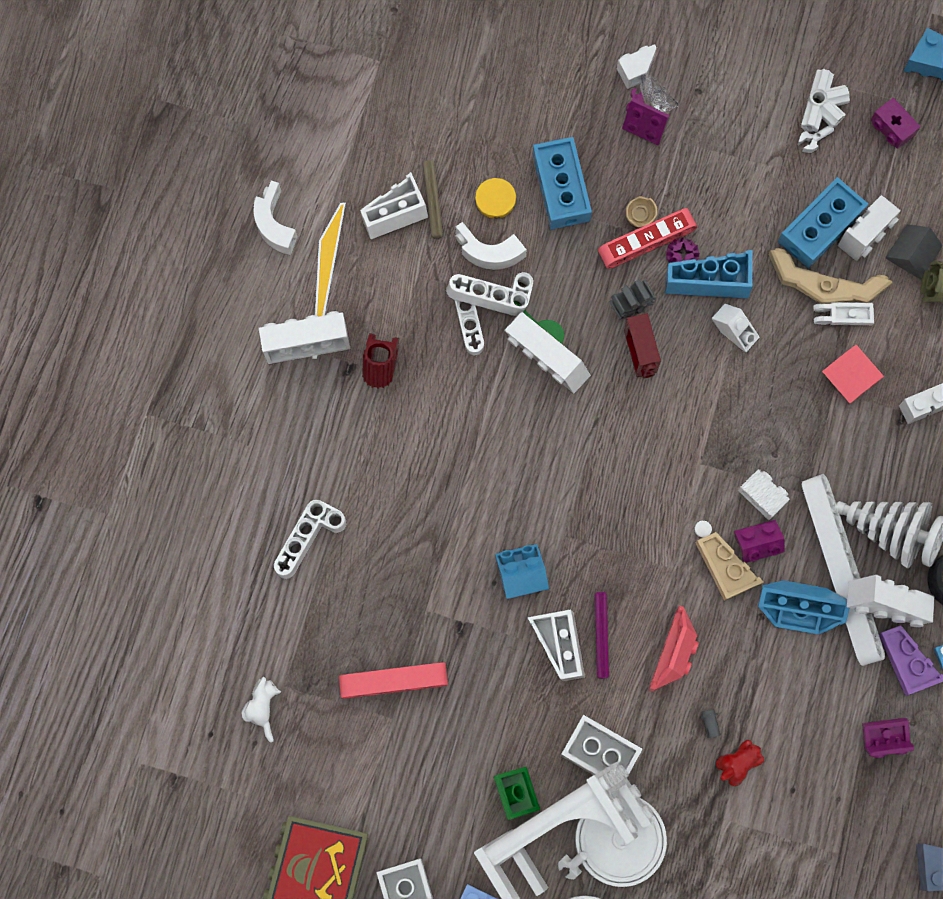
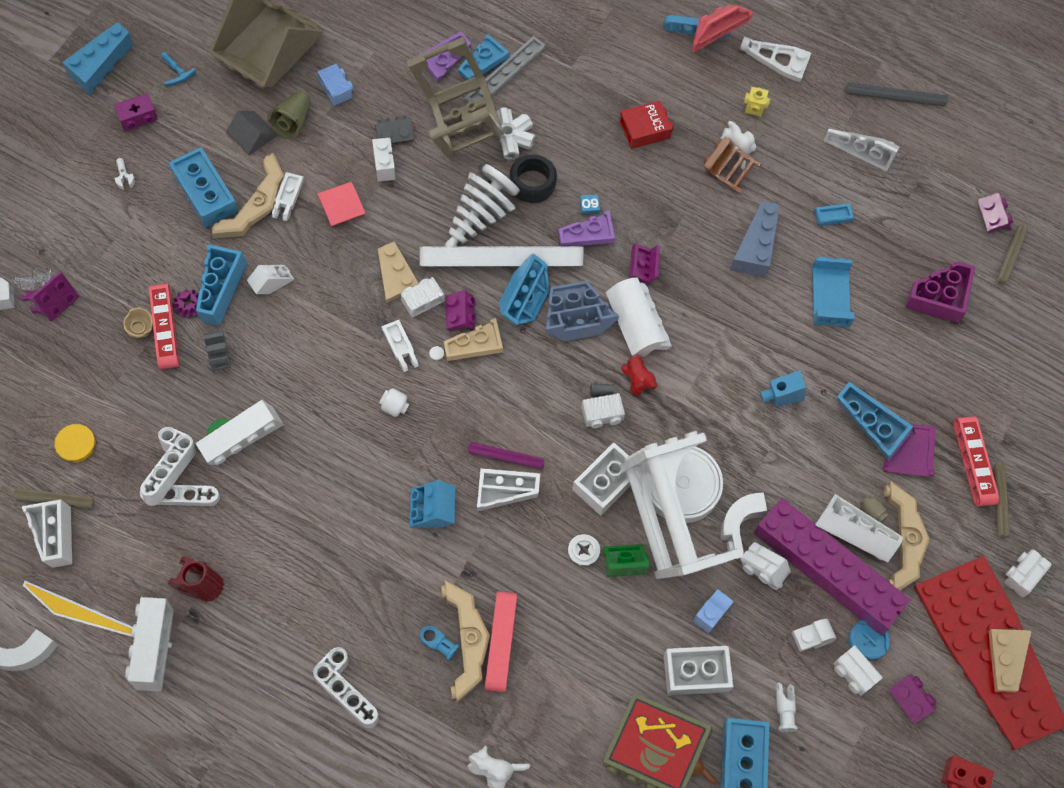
camera: 85 degrees left, 10 degrees down
(377, 617) = (439, 643): none -> dark azure connector
(388, 651) = (473, 639): none -> tan helmet
(490, 256) = (129, 462): white arch -> none
(513, 735) = (584, 541): none -> white gear
(569, 172) = (84, 380): dark azure brick -> none
(573, 864) = (702, 527): white bar -> none
(627, 498) = (394, 402): none -> white head
(642, 345) = (262, 353): dark red window -> none
(676, 651) = (535, 399): coral wedge -> none
(683, 729) = (603, 410): none -> white brick
(700, 485) = (399, 344): none -> white hinge
(787, 456) = (394, 271): none -> tan wing
(798, 671) = (577, 312): none -> sand blue wedge
(812, 745) = (638, 317): none -> white brick
(830, 100) = (94, 153): white piece -> none
(869, 228) = (221, 156): white wedge -> none
(890, 601) = (538, 226): white wedge -> none

